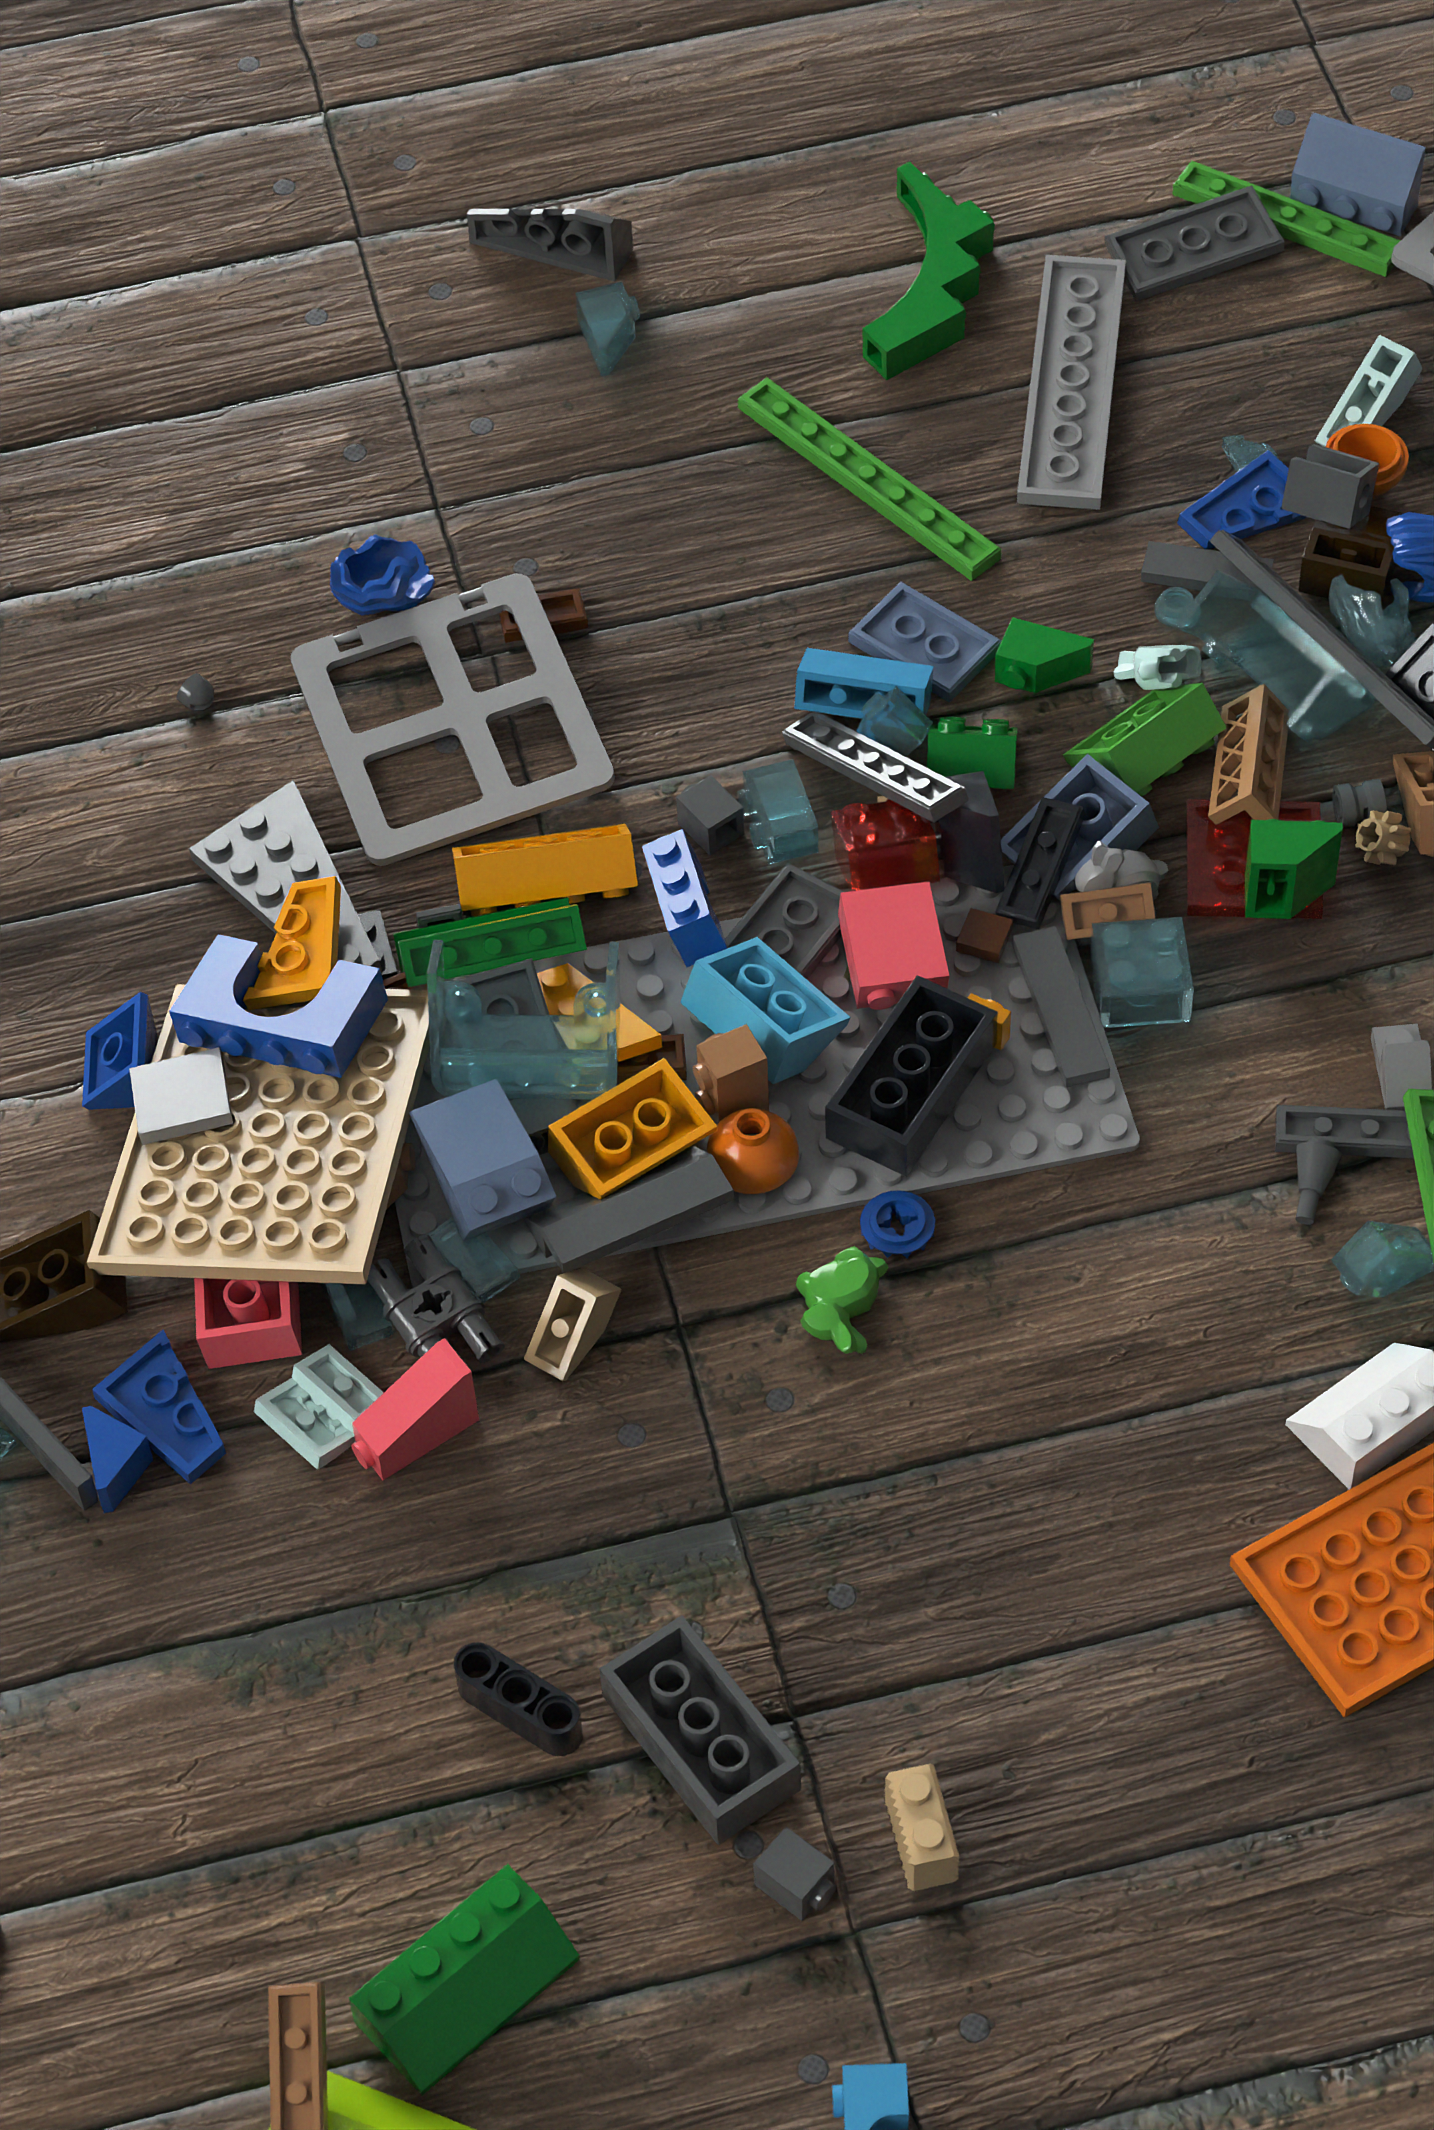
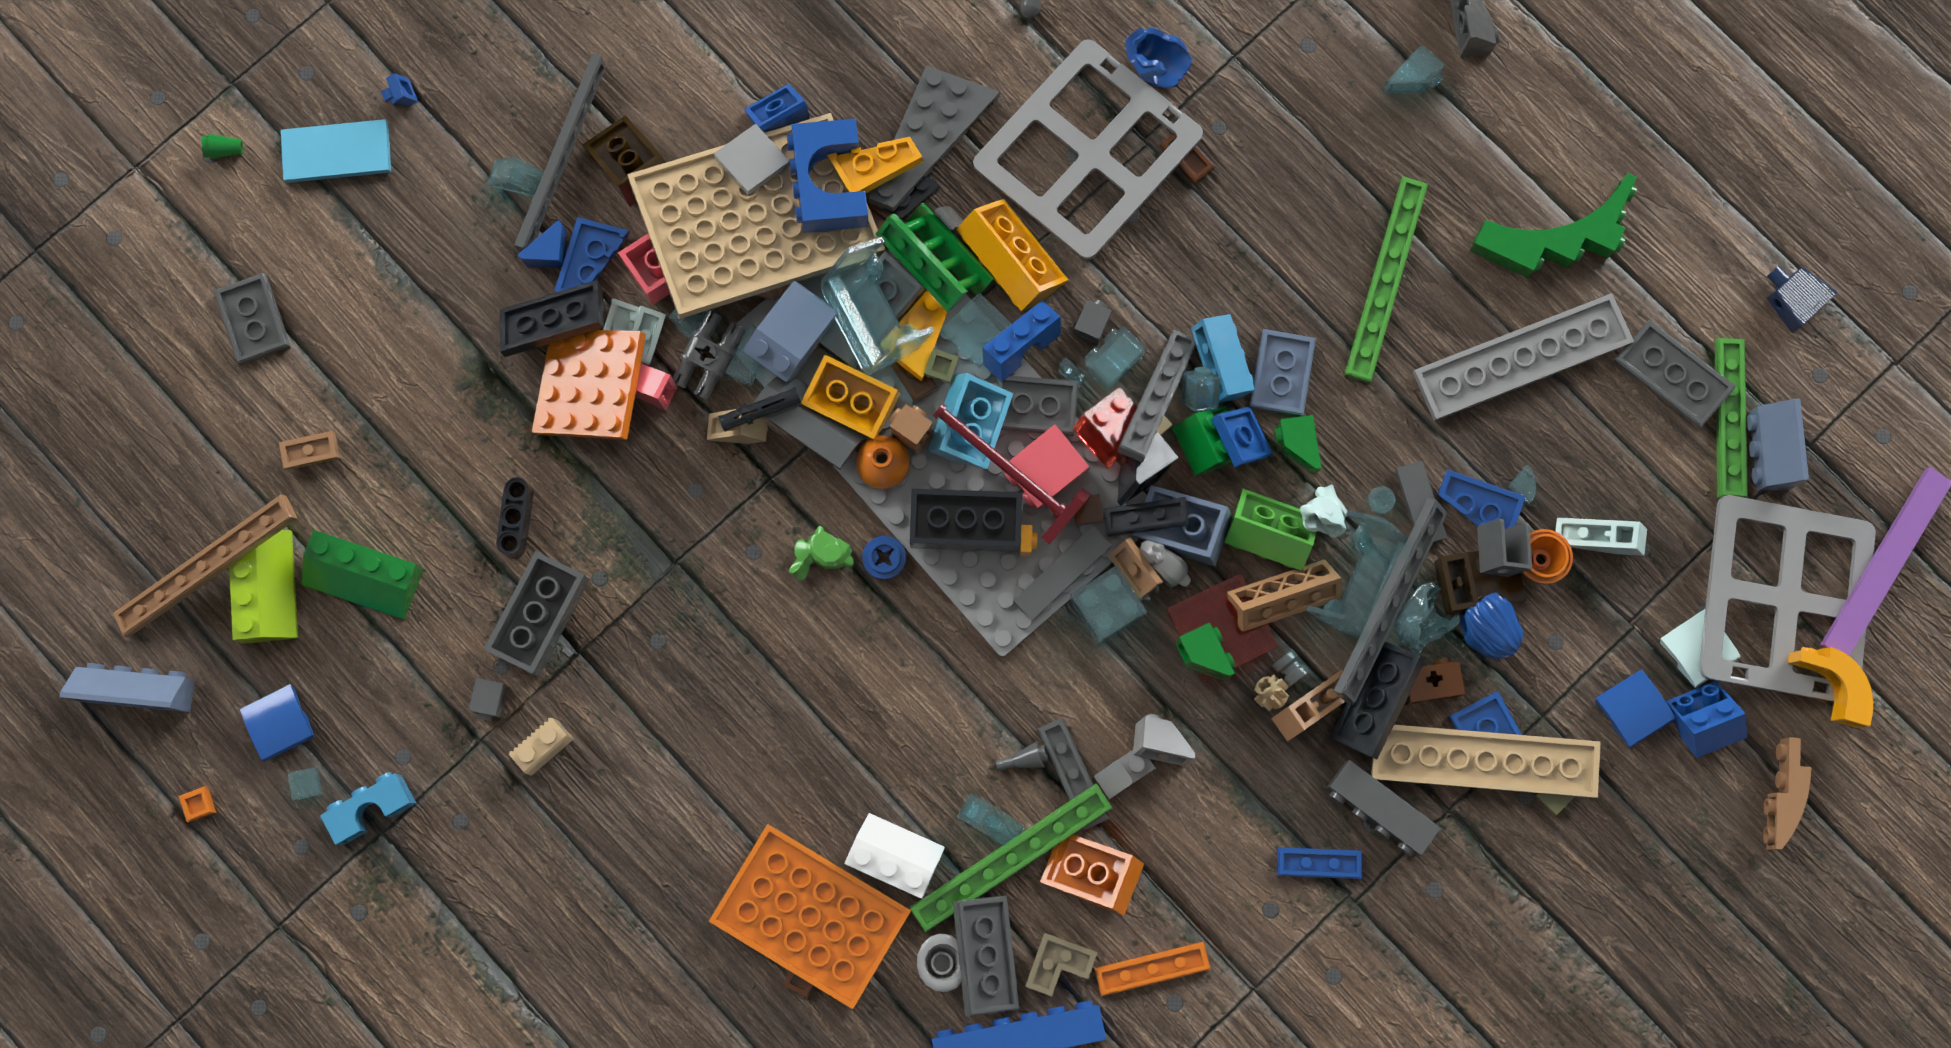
camera: 60 degrees right, 25 degrees up
(200, 1967) = (309, 450): none -> medium nougat plate
(232, 1488) = (551, 318): none -> black plate
(373, 1482) = (590, 385): none -> plate
(569, 1291) = (728, 420): none -> black pin
(645, 947) = (975, 327): none -> clear light blue tile
(659, 1005) = (941, 366): none -> olive tile
(760, 871) = (1070, 371): none -> clear light blue tile
(980, 939) = (1061, 511): none -> dark red tile
(991, 709) = (1242, 436): none -> blue tile
(1170, 87) = (1798, 296): none -> torso
(1383, 993) = (1161, 741): none -> light grey slope

